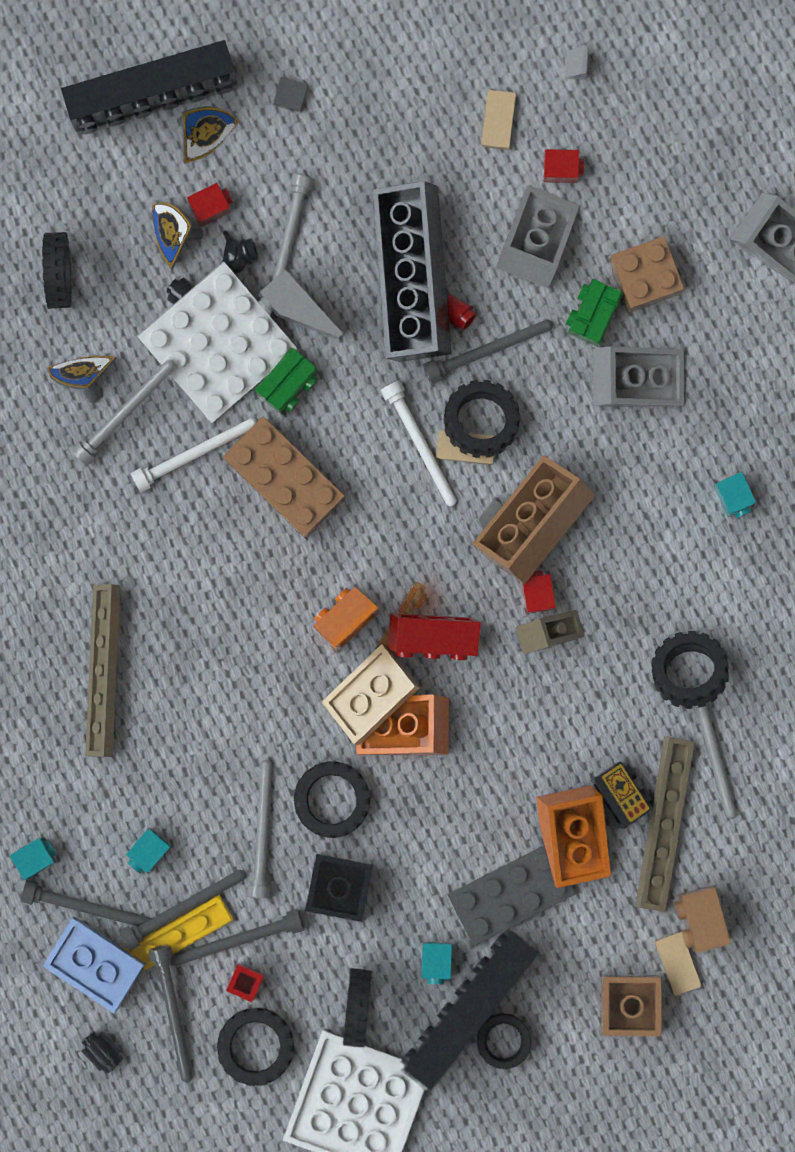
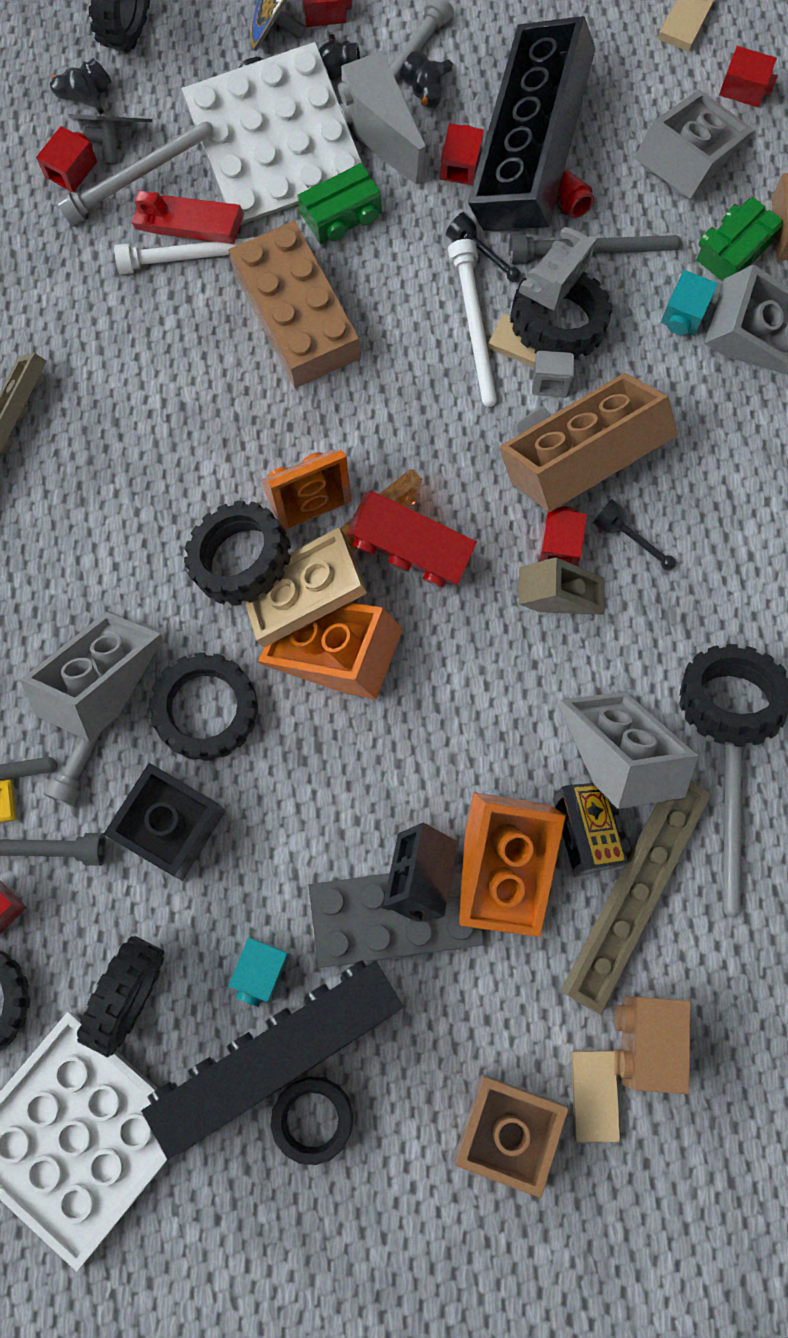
camera: 20 degrees right, 10 degrees down
(48, 344) = (82, 84): none -> black animal
(64, 412) = (67, 158): none -> red brick
(175, 431) = (187, 217): none -> red hinge
(250, 804) = (91, 675): none -> light grey slope
(289, 675) = (215, 531): none -> black tyre
(314, 249) = (425, 77): none -> black animal
(364, 307) = (461, 153): none -> red brick
(388, 371) = (465, 228): none -> black hinge
(469, 391) = (559, 269): none -> light grey hinge
(491, 468) = (553, 374): none -> light grey slope
(519, 862) = (420, 873): none -> black hinge
(570, 565) = (613, 519): none -> black hinge
(572, 379) = (688, 303): none -> teal brick
(628, 733) = (628, 750): none -> light grey slope

